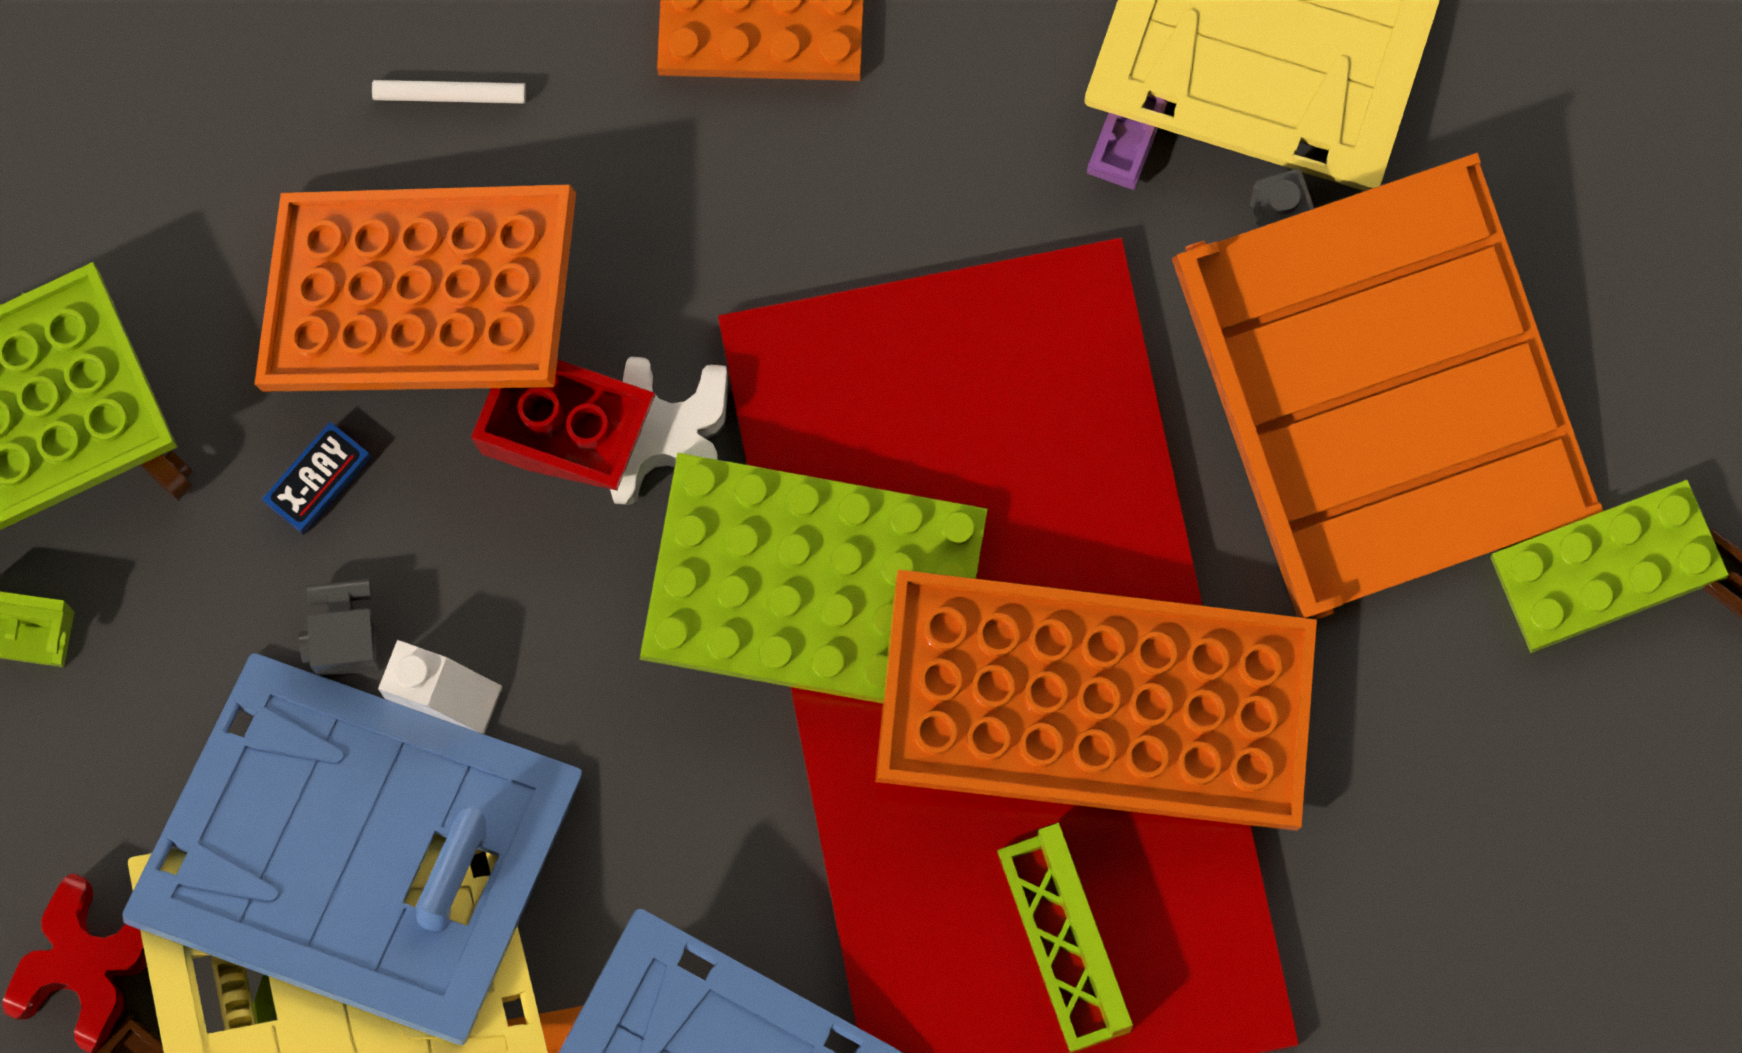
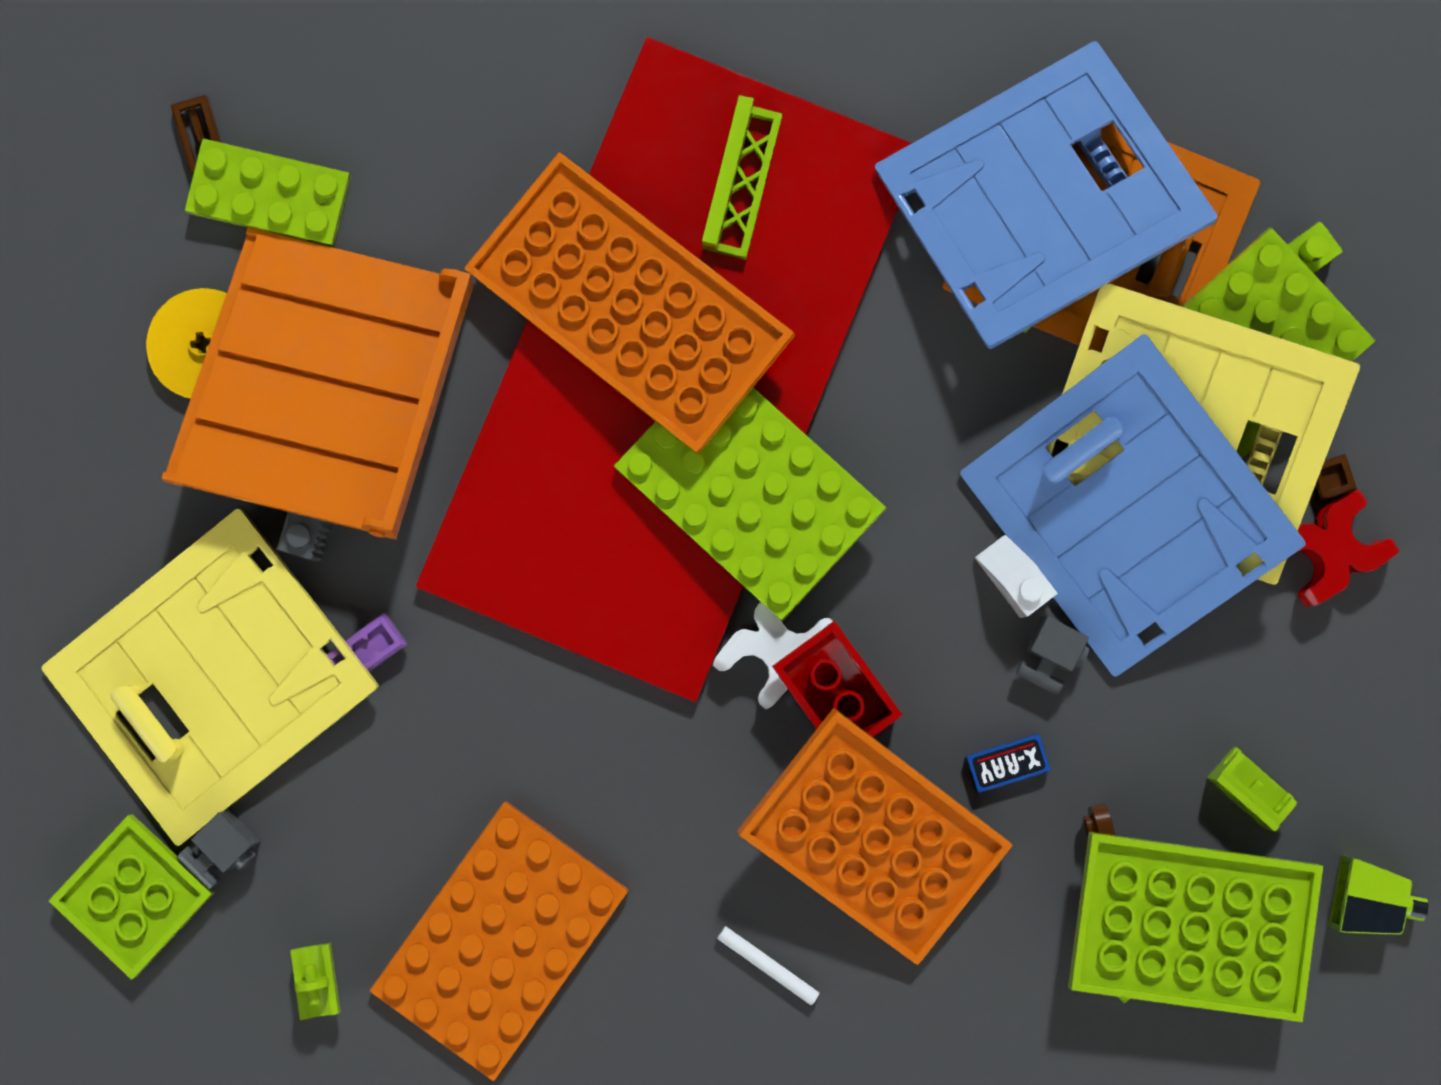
camera: 150 degrees left, 10 degrees up
(1596, 337) = (174, 335): none -> yellow piece

